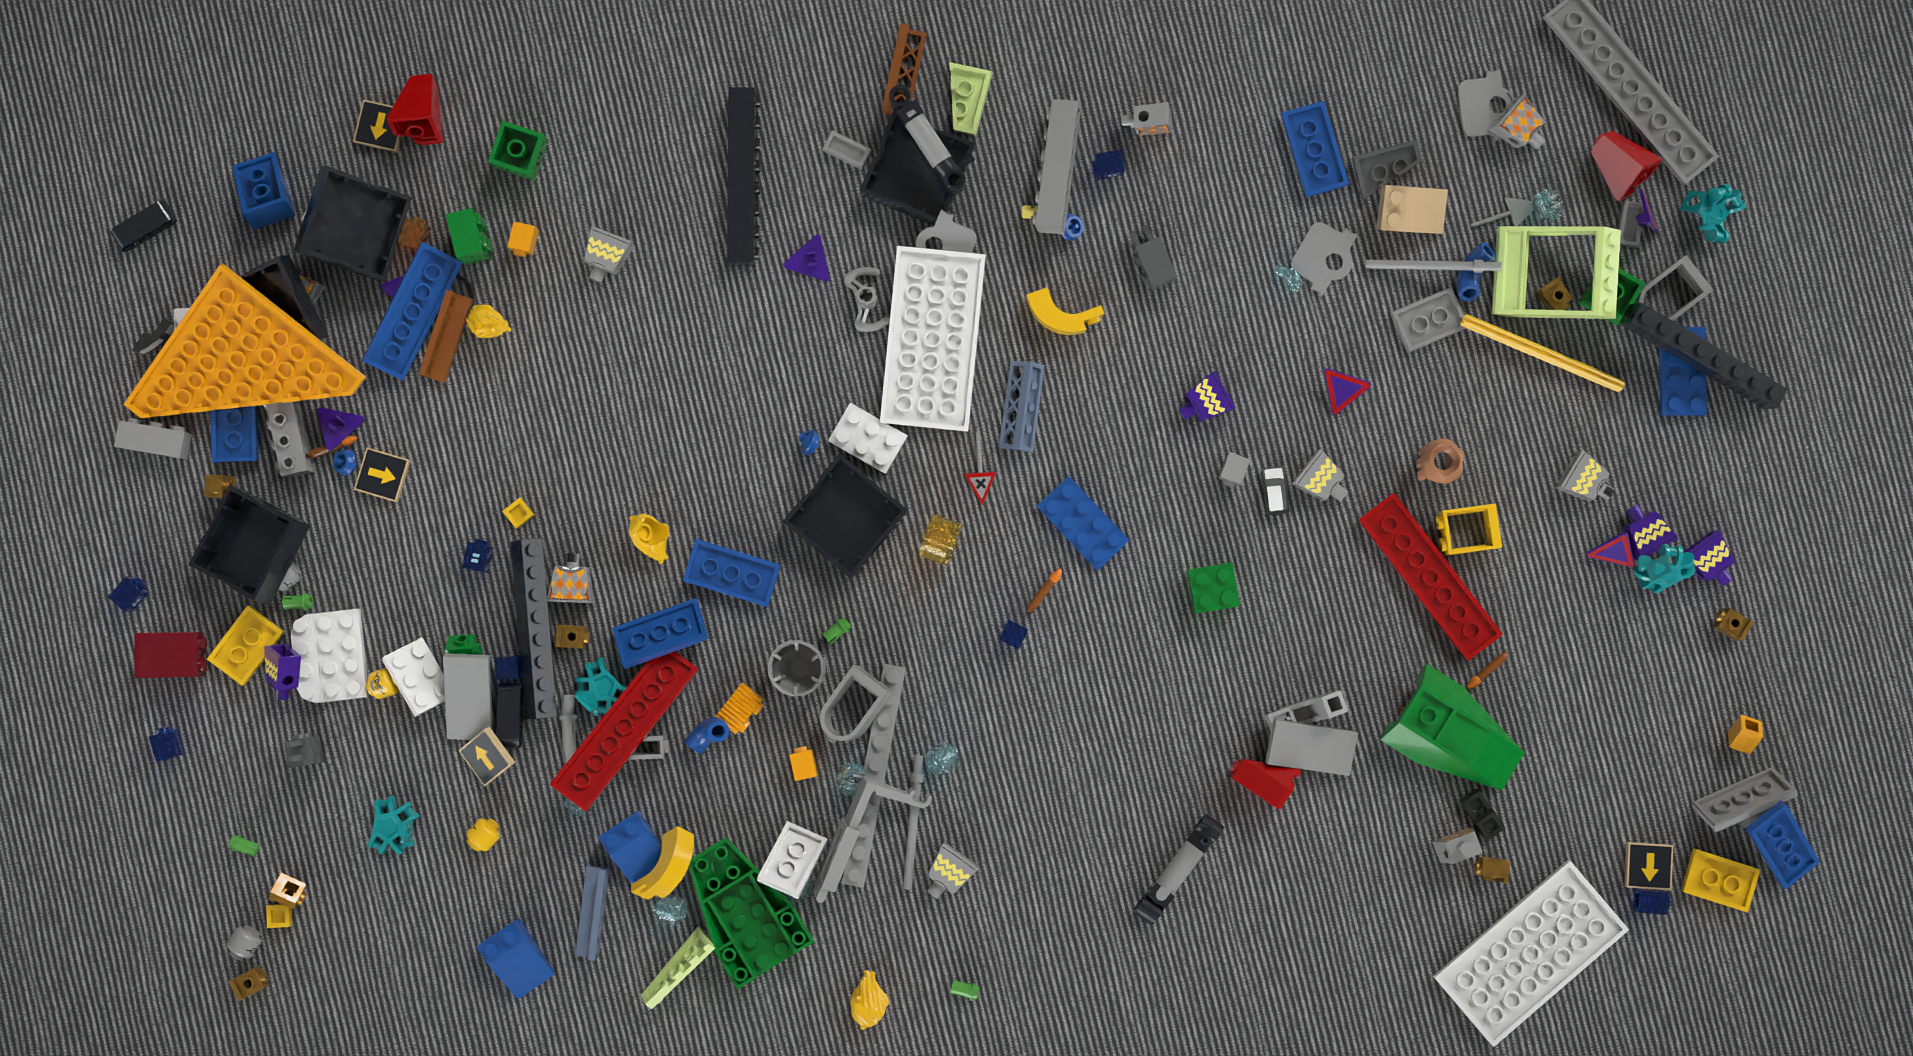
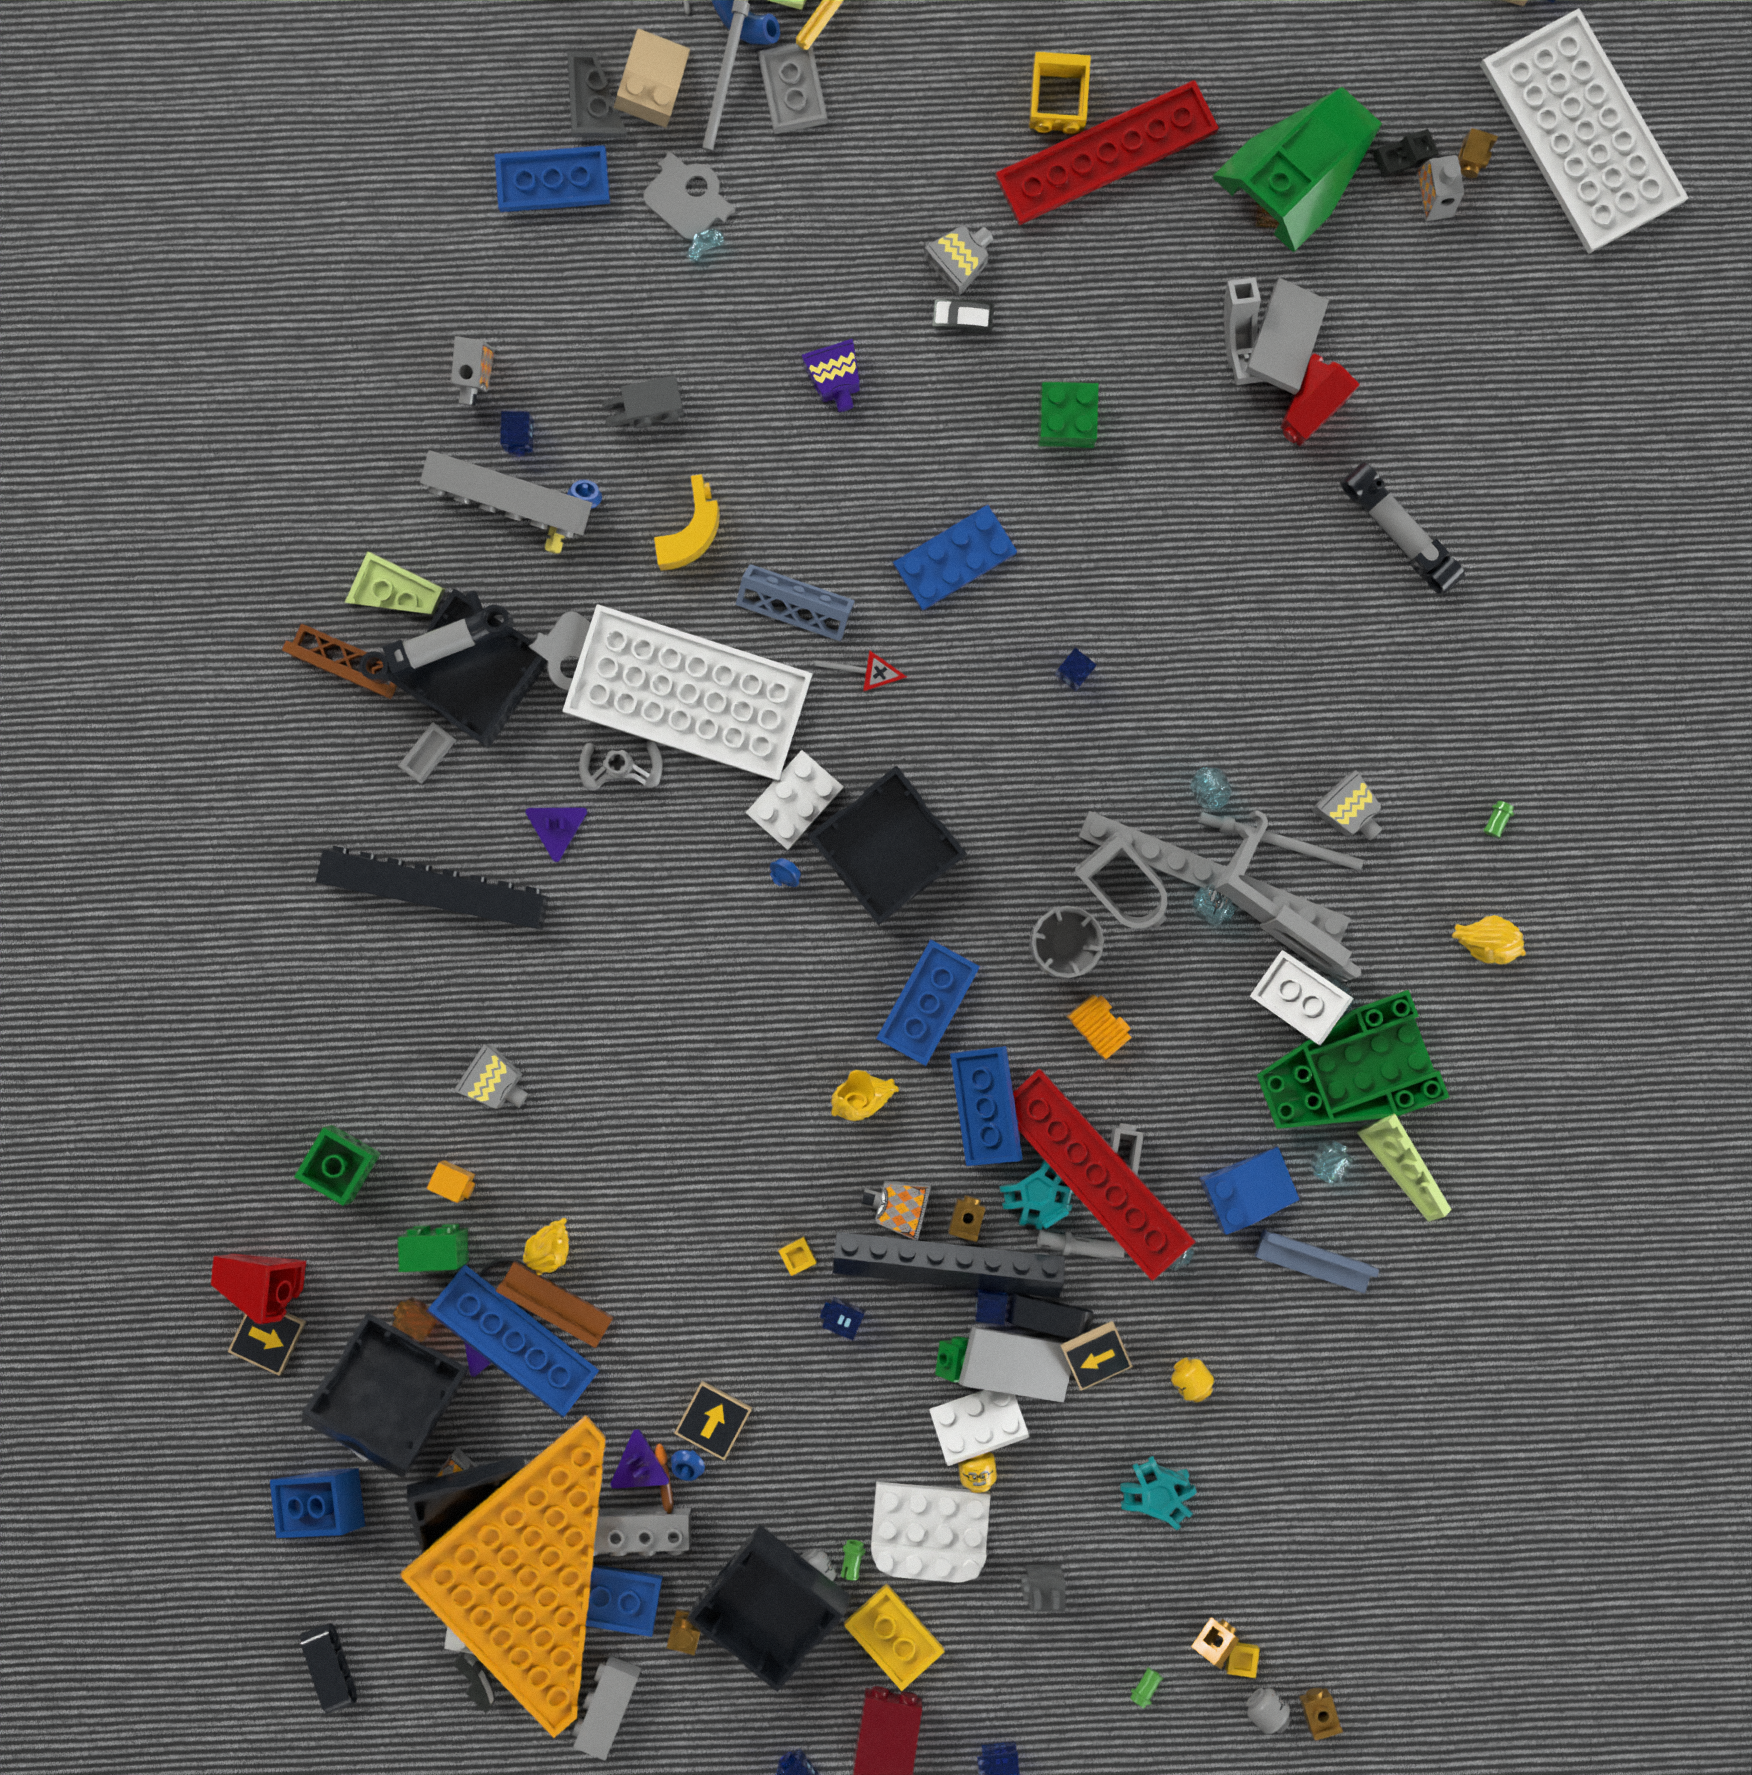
camera: 80 degrees left, 0 degrees up
(282, 669) = (934, 1596): dark purple torso -> none
(516, 958) = (1353, 1368): blue slope -> none
(671, 867) = (1282, 1150): yellow arch -> none
(706, 732) = (1121, 1073): blue cylinder -> none
(803, 763) = (1183, 960): light orange brick -> none
(837, 630) = (1026, 886): bright green pin -> none
(940, 539) = (941, 733): clear yellow brick -> none
(1044, 590) = (1016, 608): dark orange piece -> none
(1233, 470) = (927, 359): light grey brick -> none
(1343, 389) = (856, 206): piece -> none
(1453, 466) = (978, 92): nougat piece -> none
(1486, 671) = (1242, 125): dark orange piece -> none

